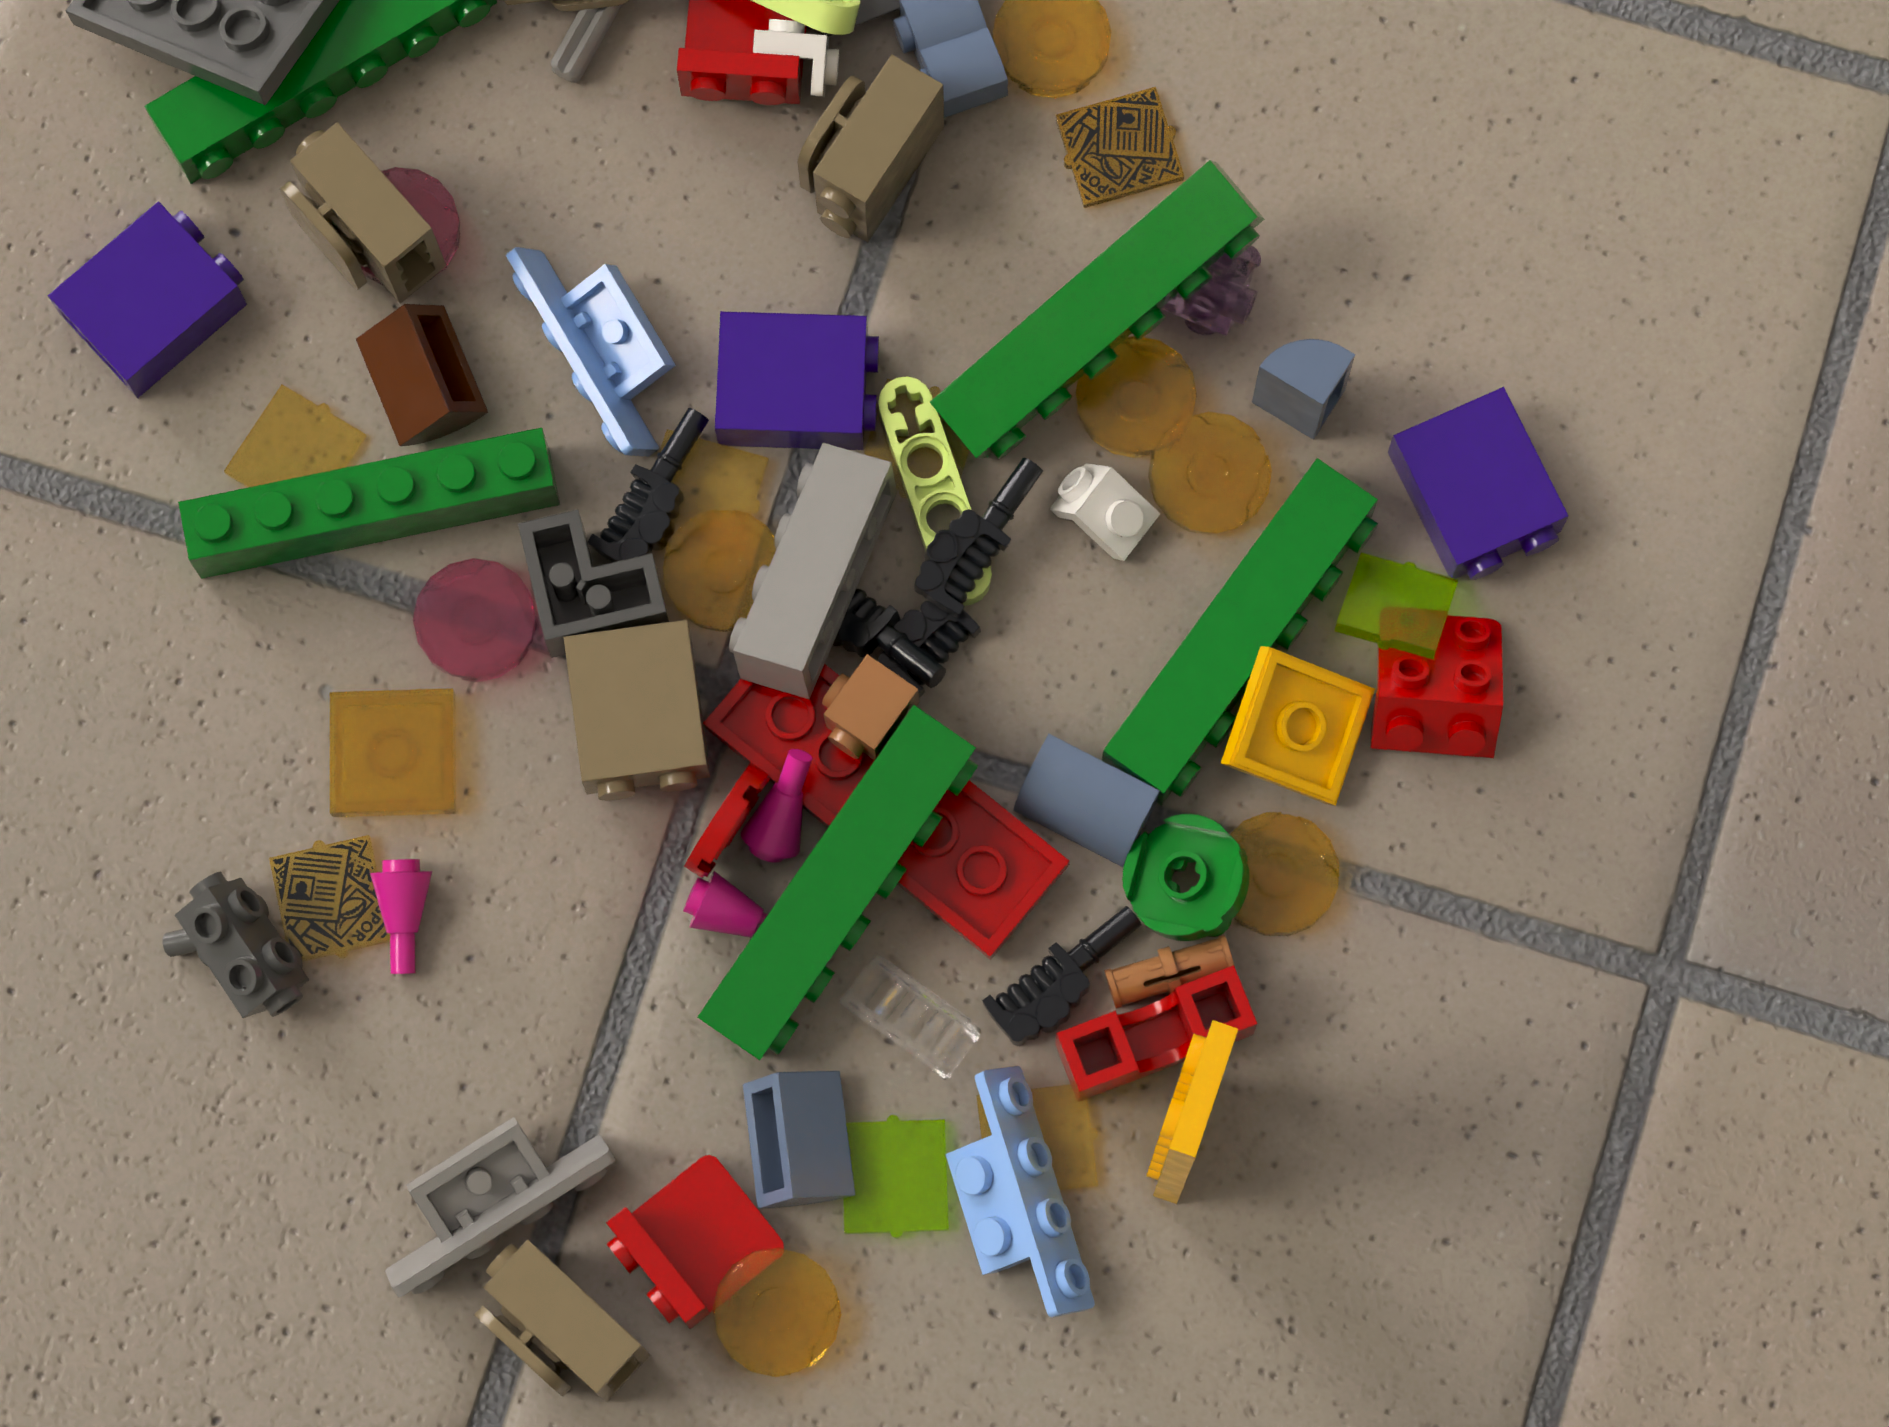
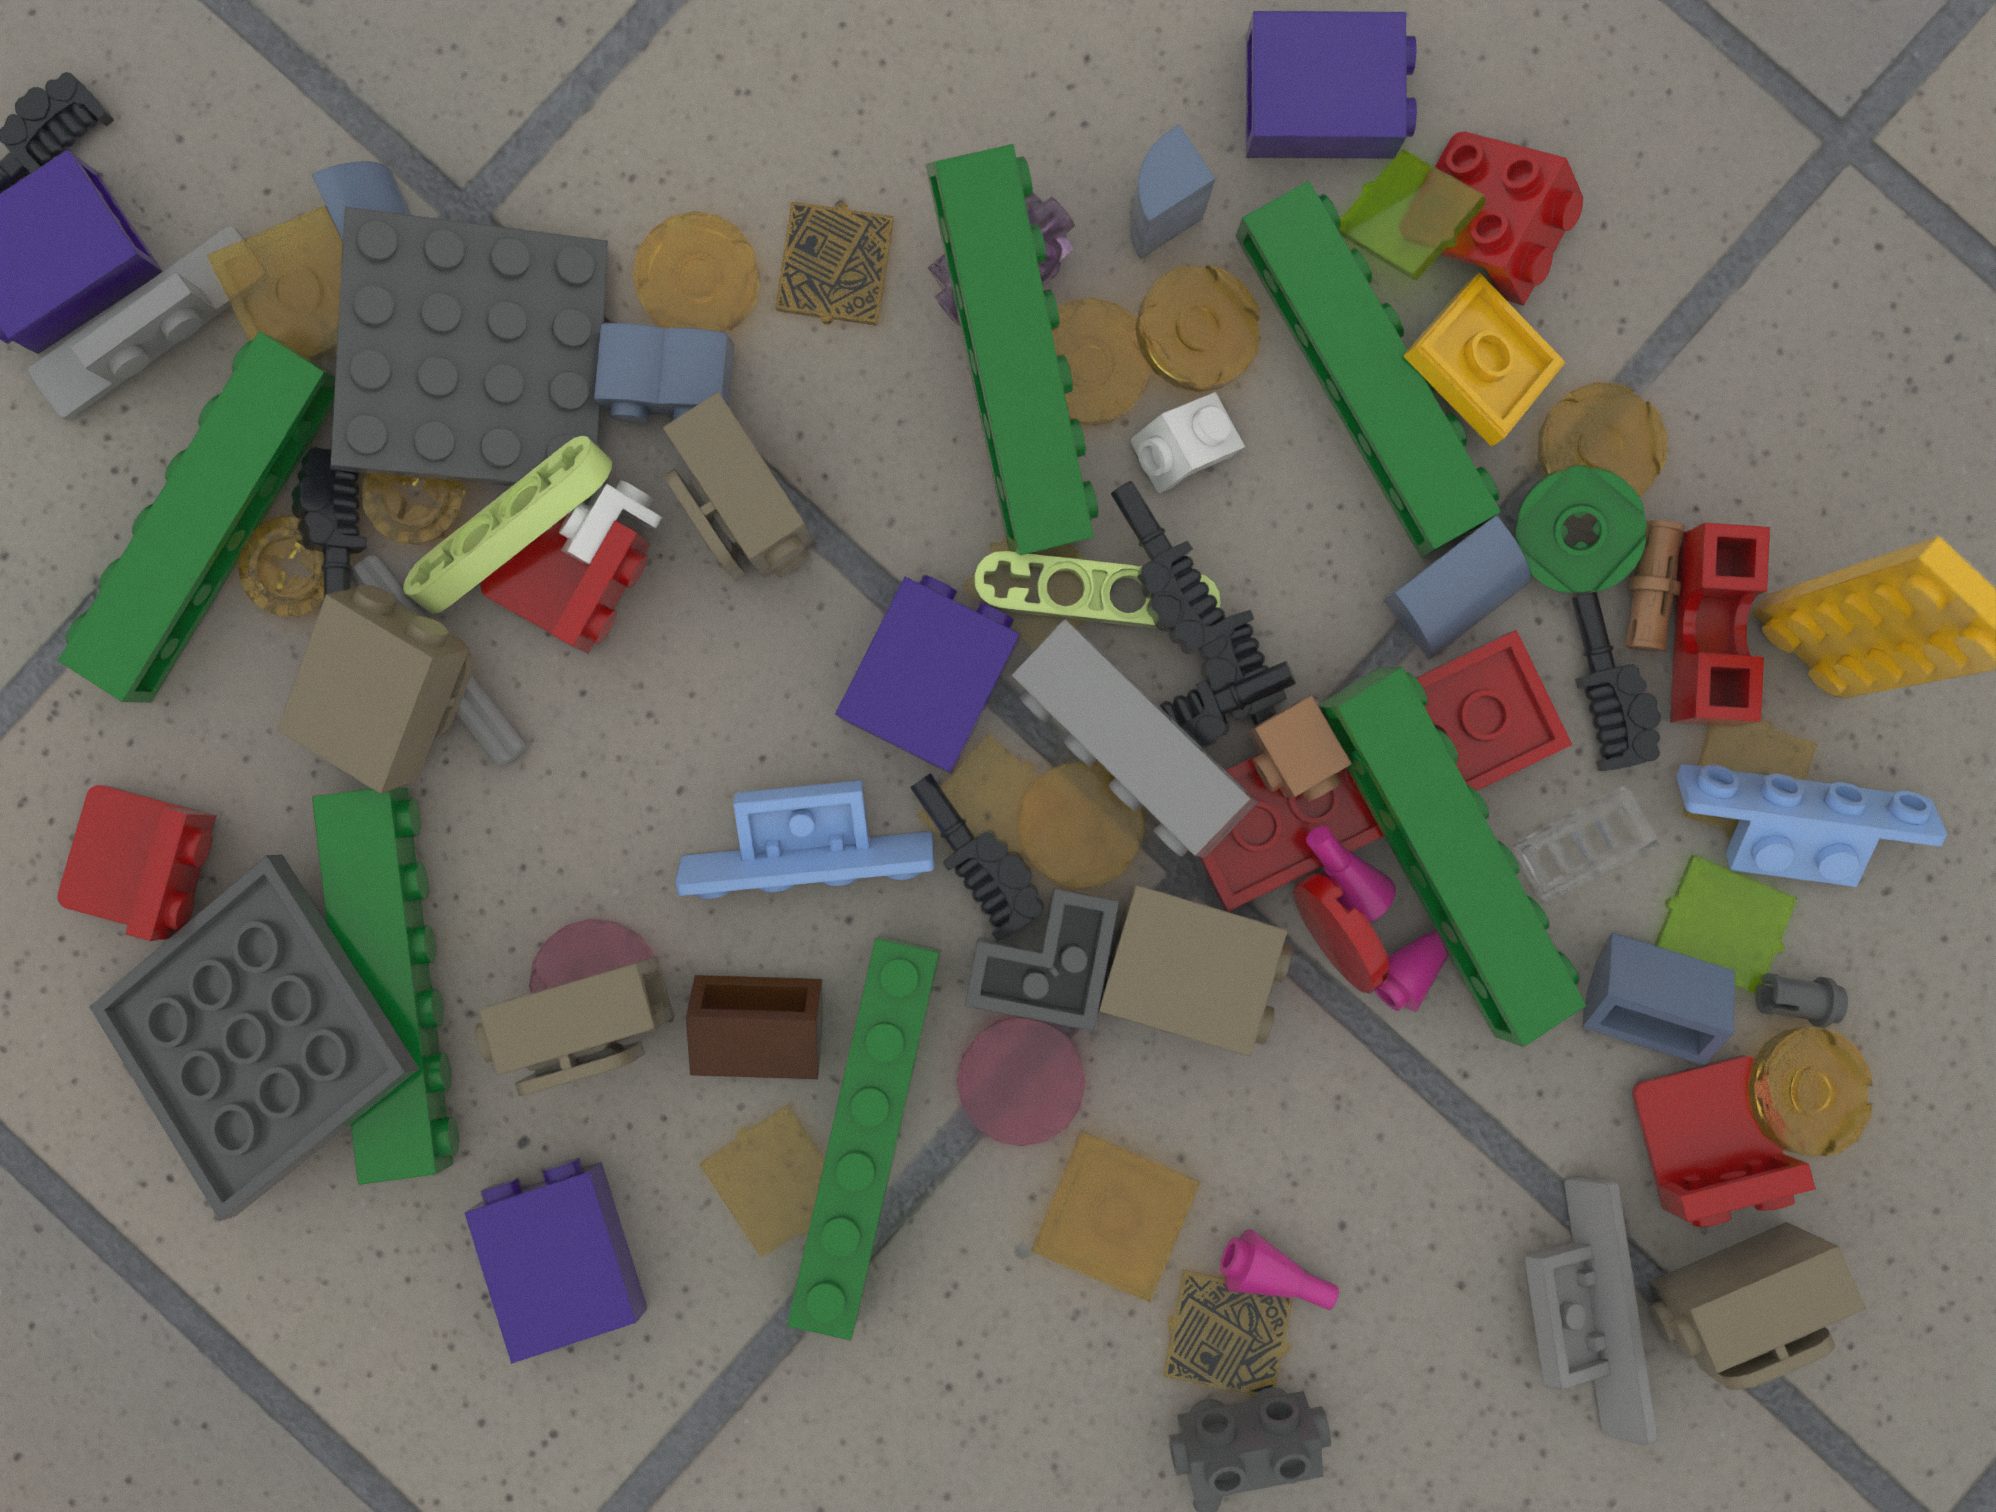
camera: 65 degrees left, 10 degrees up
(856, 1266) = (1818, 1001): none -> dark grey pin

